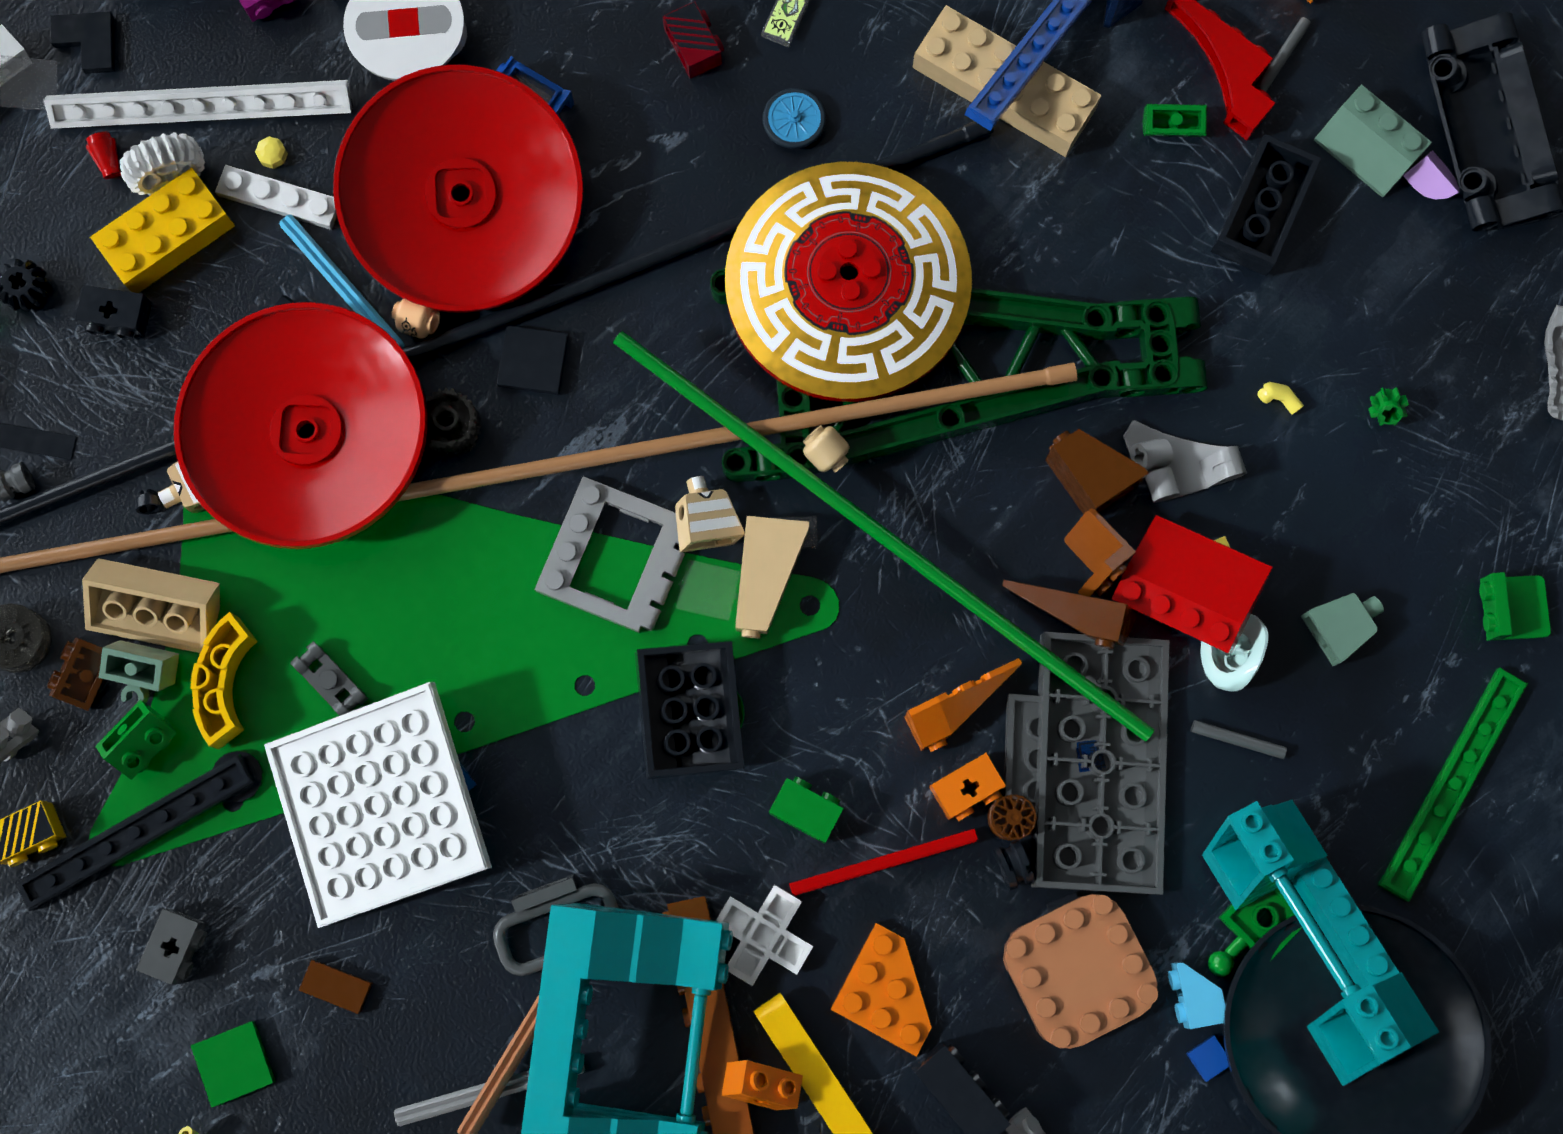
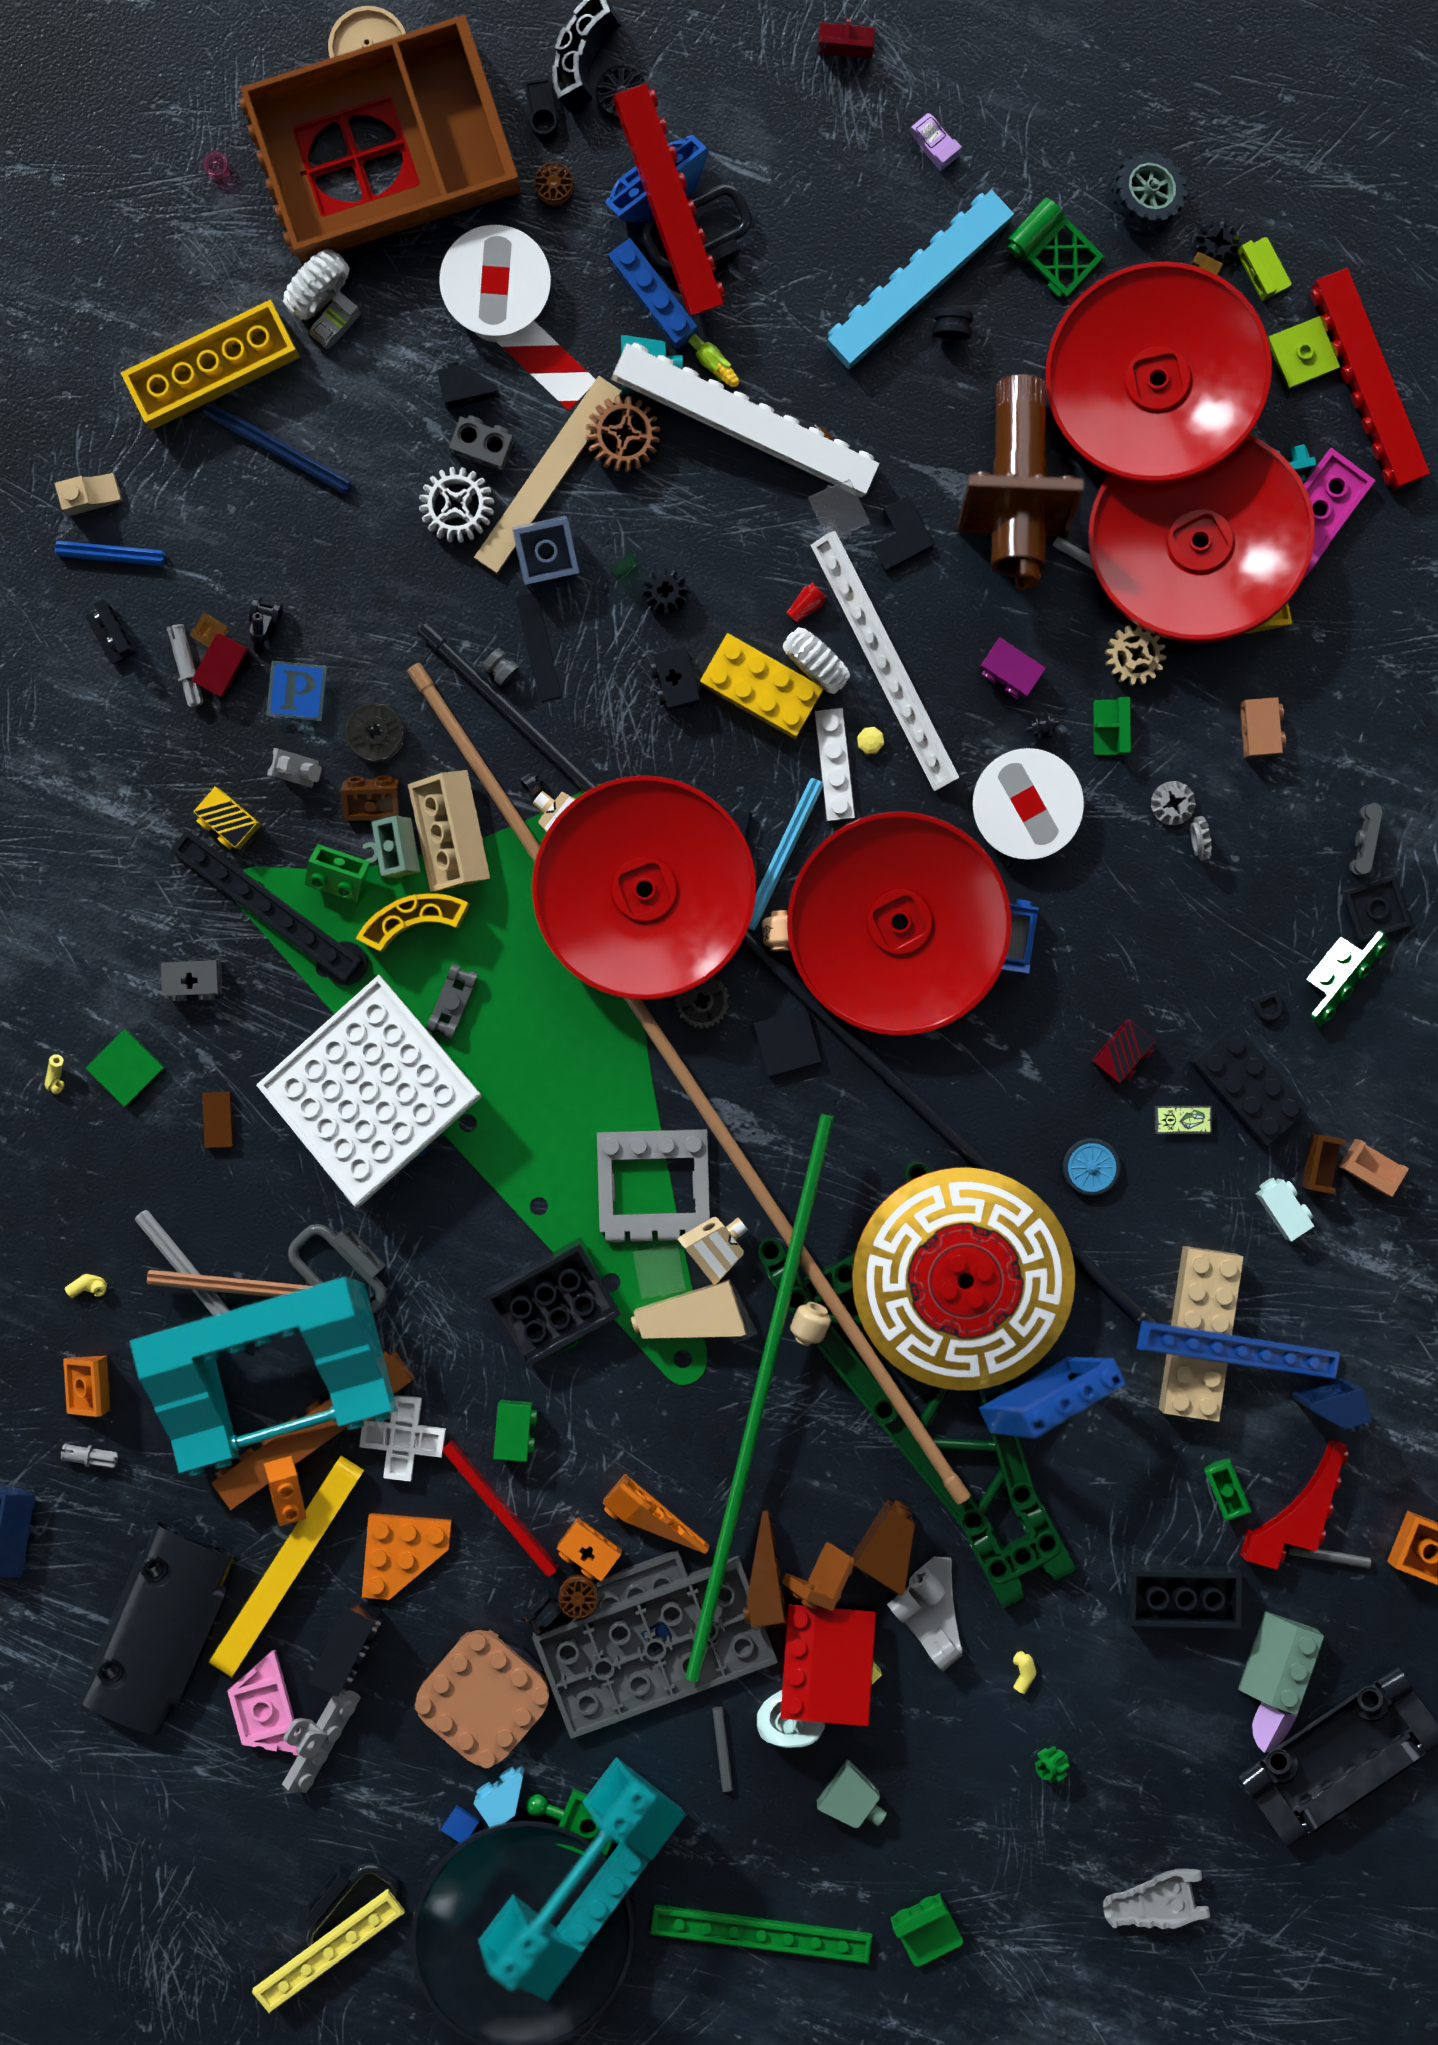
camera: 70 degrees right, 10 degrees up
(1000, 223) = (1052, 1396): none -> blue window

